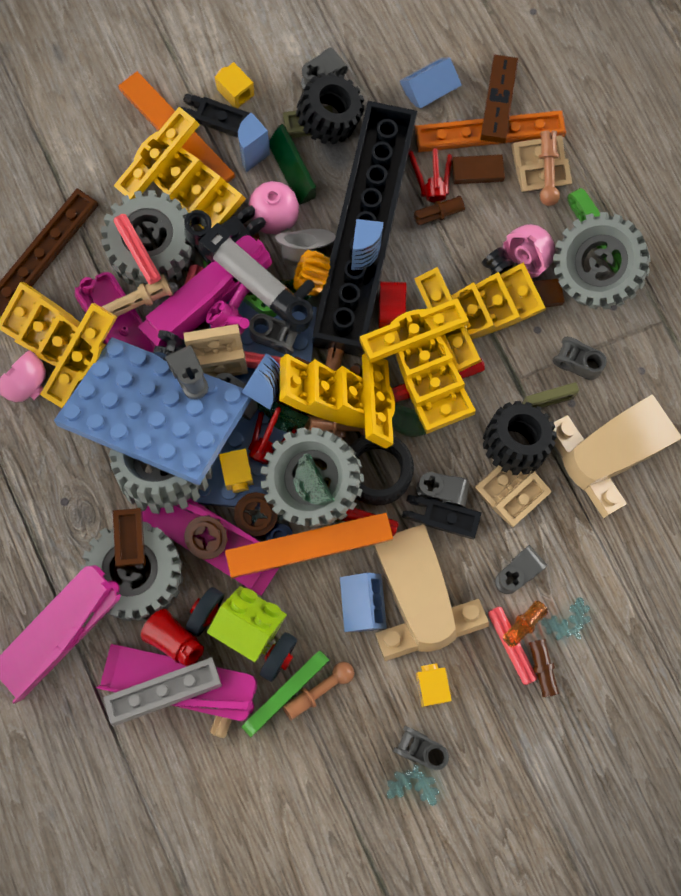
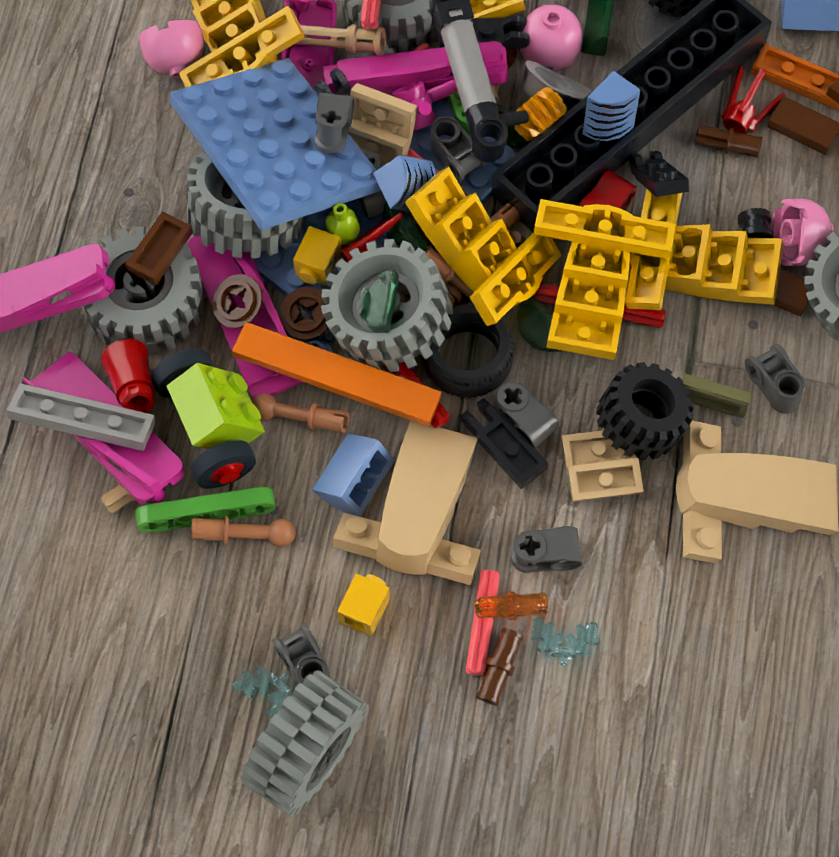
camera: 40 degrees right, 10 degrees down
(240, 438) = (343, 223): none -> lime plant
(312, 579) = (315, 416): none -> nougat pin
(417, 267) = (658, 175): none -> black hinge
(474, 813) = (304, 743): none -> light grey wheel

